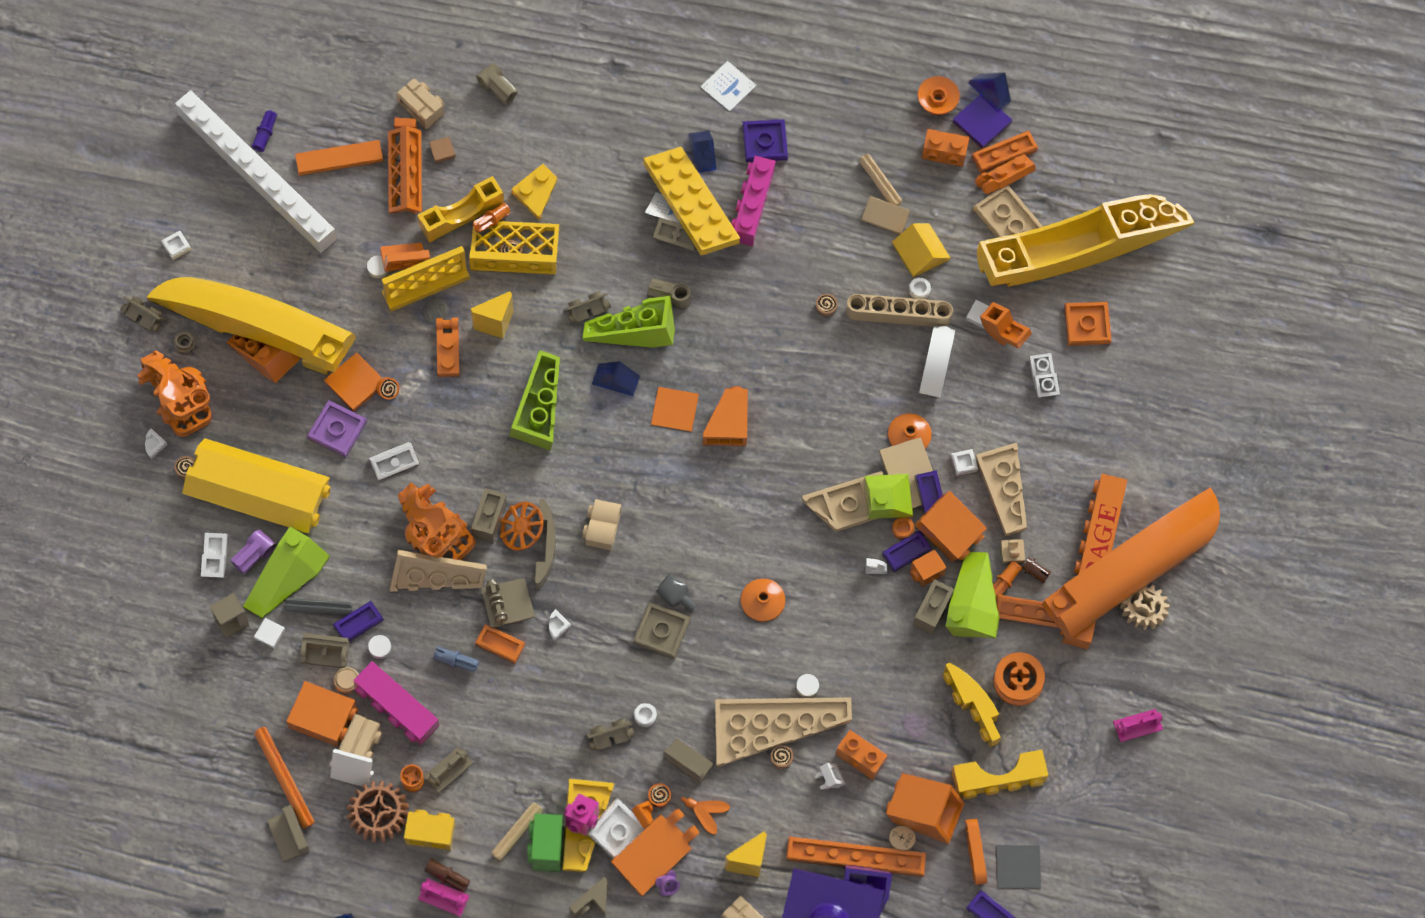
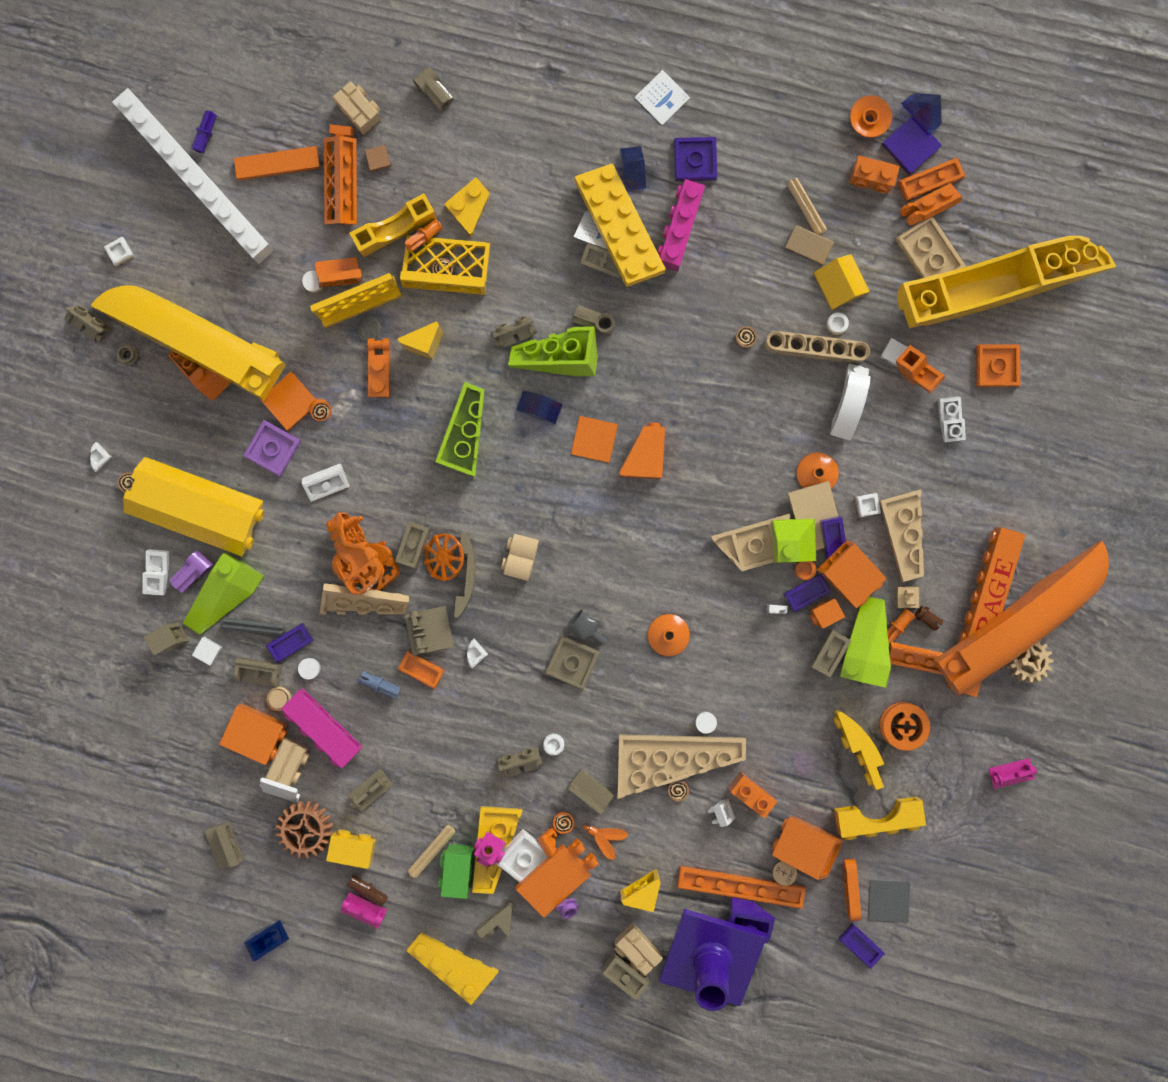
camera: 10 degrees right, 20 degrees up
(180, 393) = (117, 410): orange animal -> none
(284, 777) = (219, 791): orange axle -> none
(412, 773) = (333, 802): orange wheel -> none

